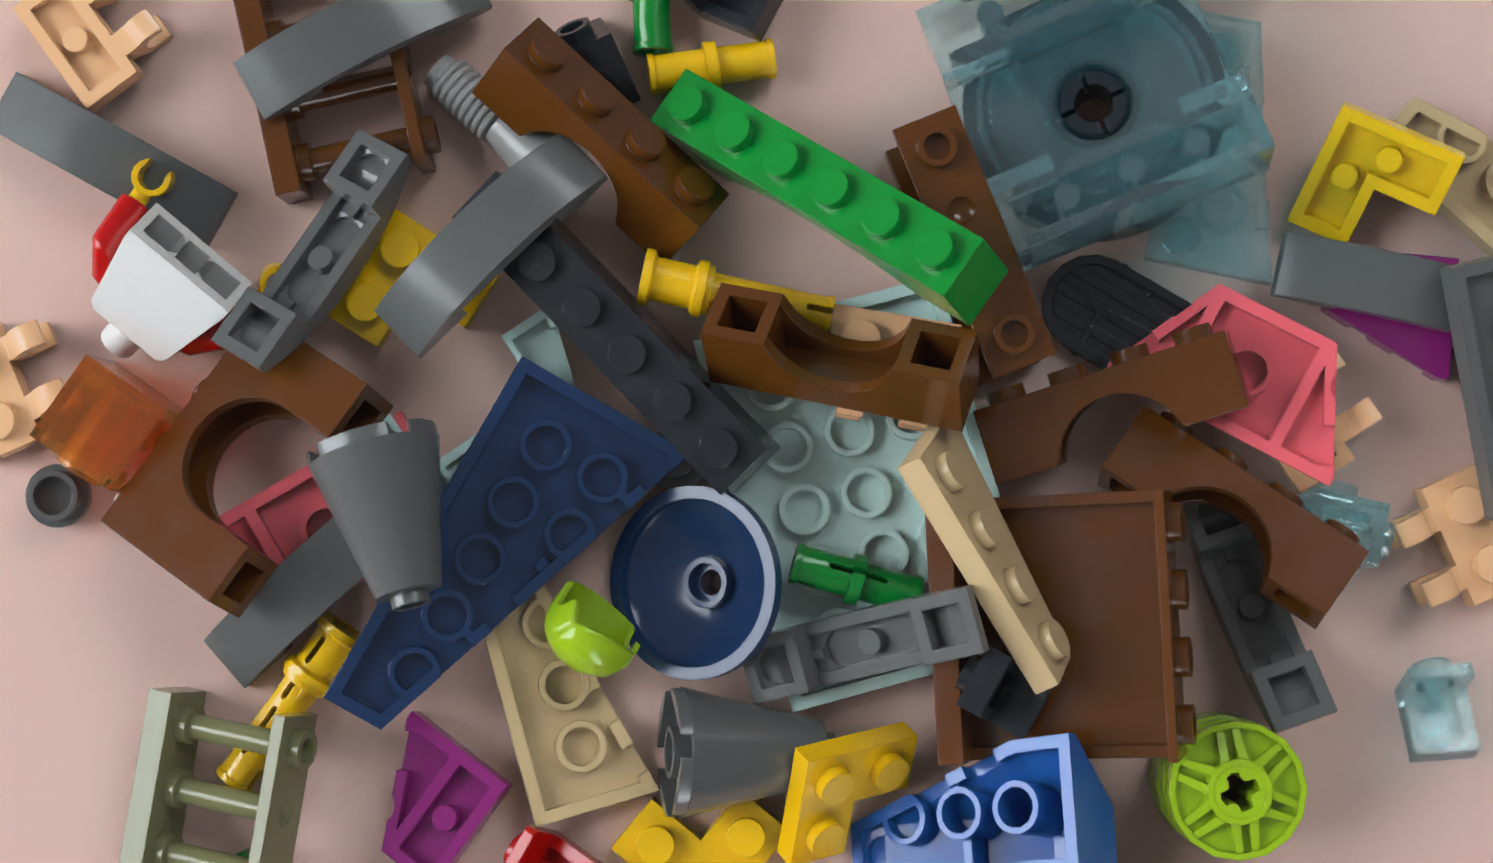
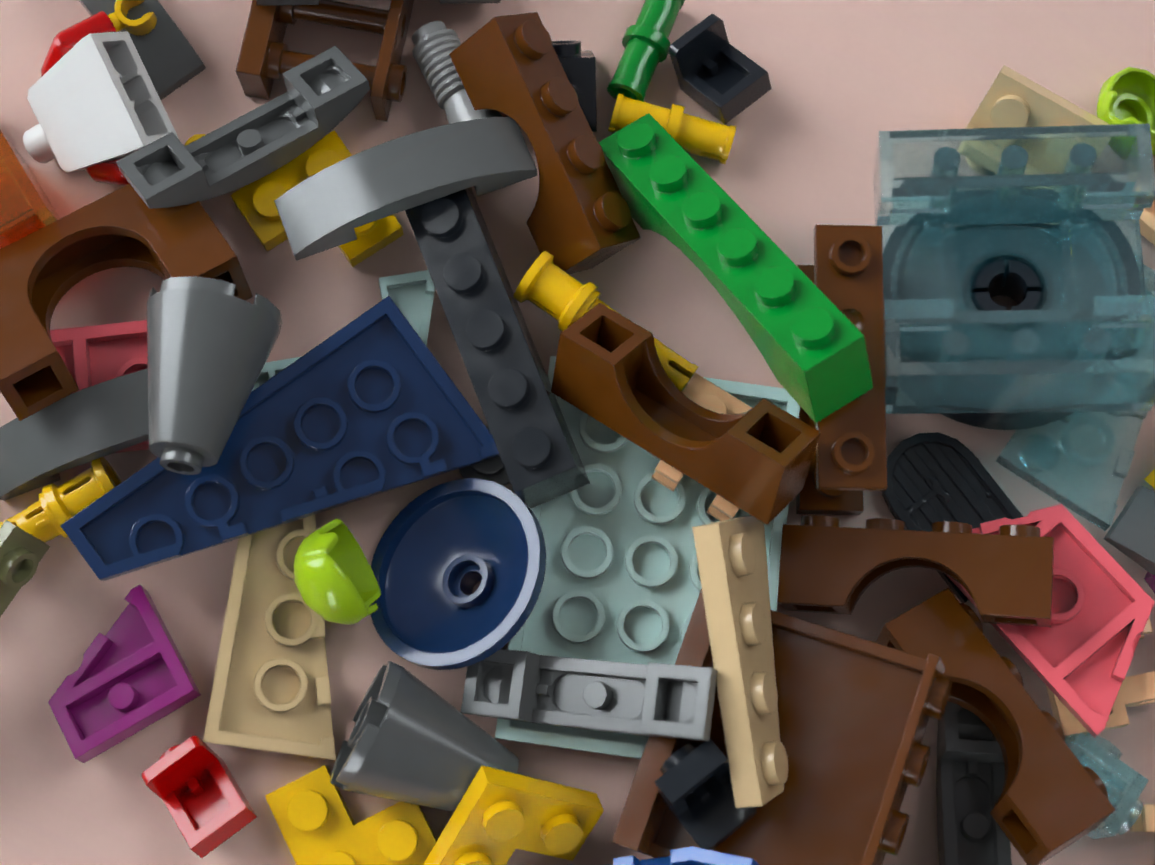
camera: 15 degrees right, 10 degrees down
(850, 578) = (600, 627): green pin -> none

